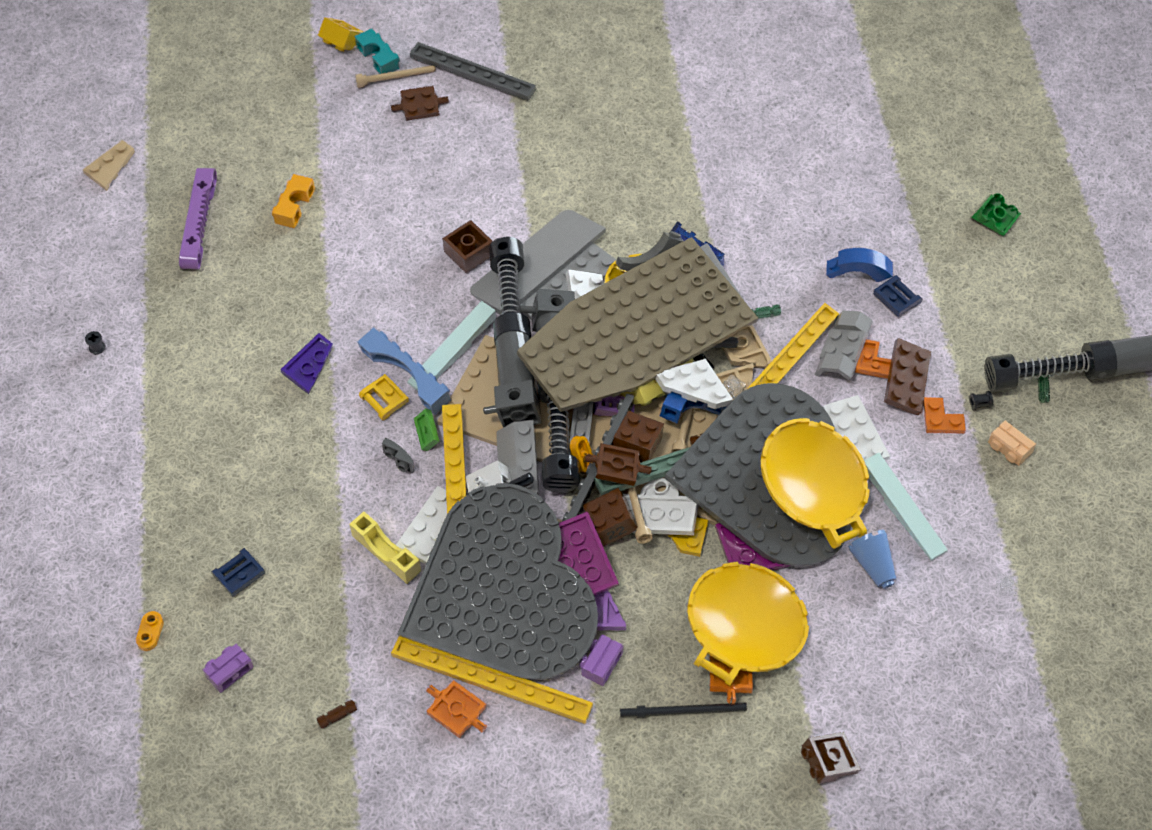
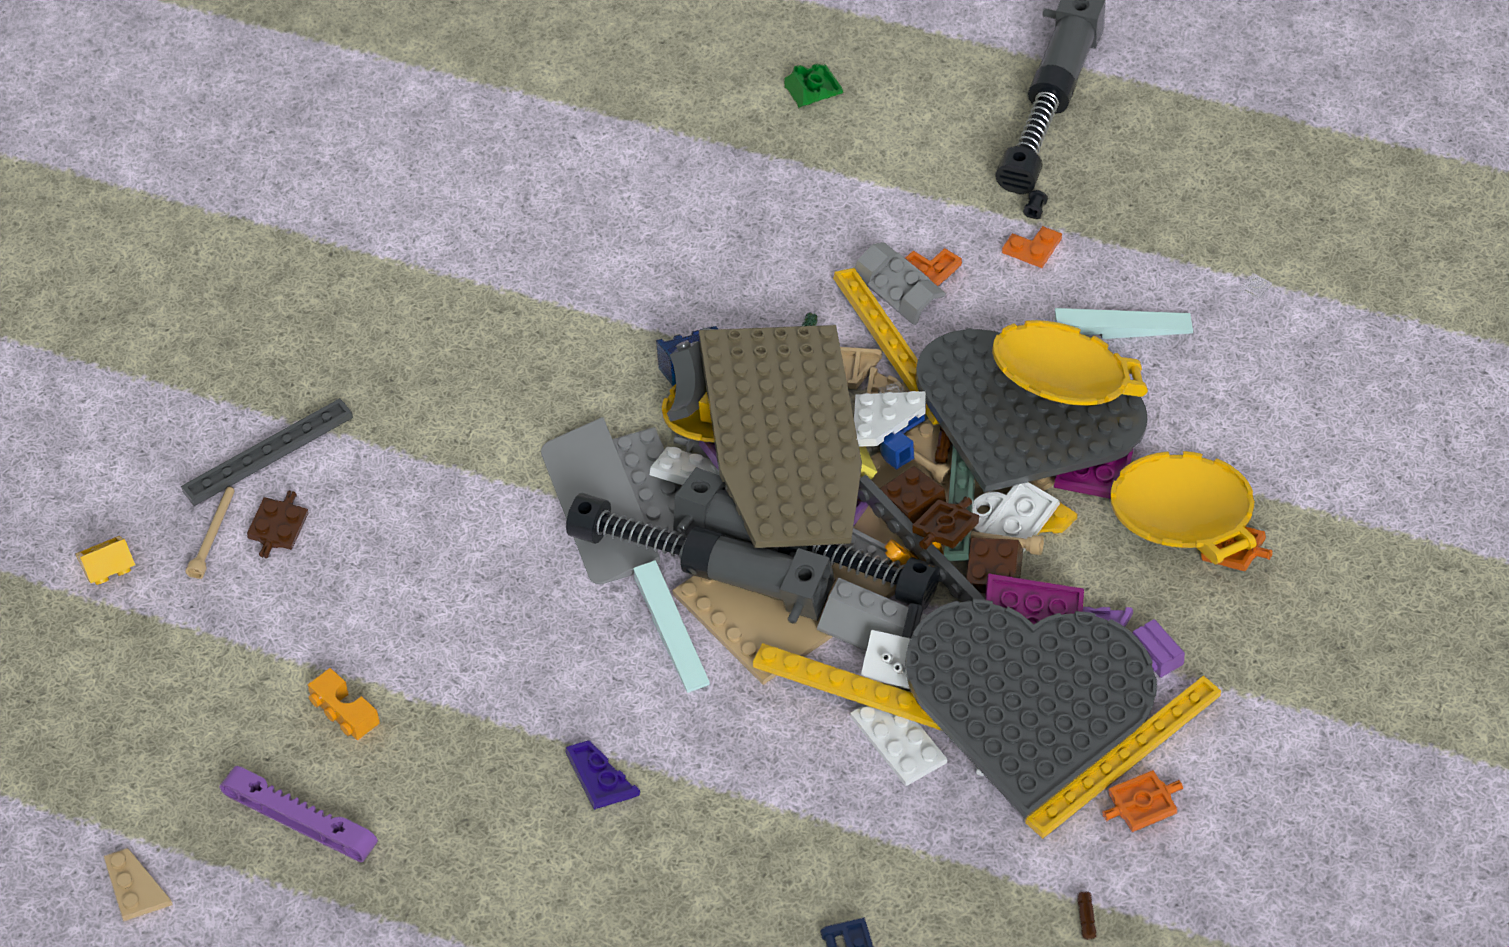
camera: 60 degrees left, 5 degrees down
(371, 43) = (146, 532): teal arch -> none
(371, 536) = (880, 797): light yellow arch -> none
(380, 349) = (722, 667): medium blue arch -> none
(388, 392) = (695, 712): yellow plate -> none
(402, 458) = (795, 730): dark grey slope -> none
(426, 430) = (769, 694): bright green plate -> none
(467, 246) = (540, 554): reddish brown brick -> none
(642, 711) = (1234, 639): black bar -> none
(829, 757) = (1369, 507): reddish brown plate -> none
(854, 422) = (998, 315): white plate -> none
(860, 260) = (802, 219): blue arch -> none
(875, 557) = (1171, 369): medium blue cone -> none
(895, 299) = (862, 212): dark blue plate -> none
(907, 376) = (970, 248): reddish brown plate -> none
(1011, 443) = (1101, 204): light nougat brick -> none
(1044, 389) = (1053, 152): clear green axle -> none

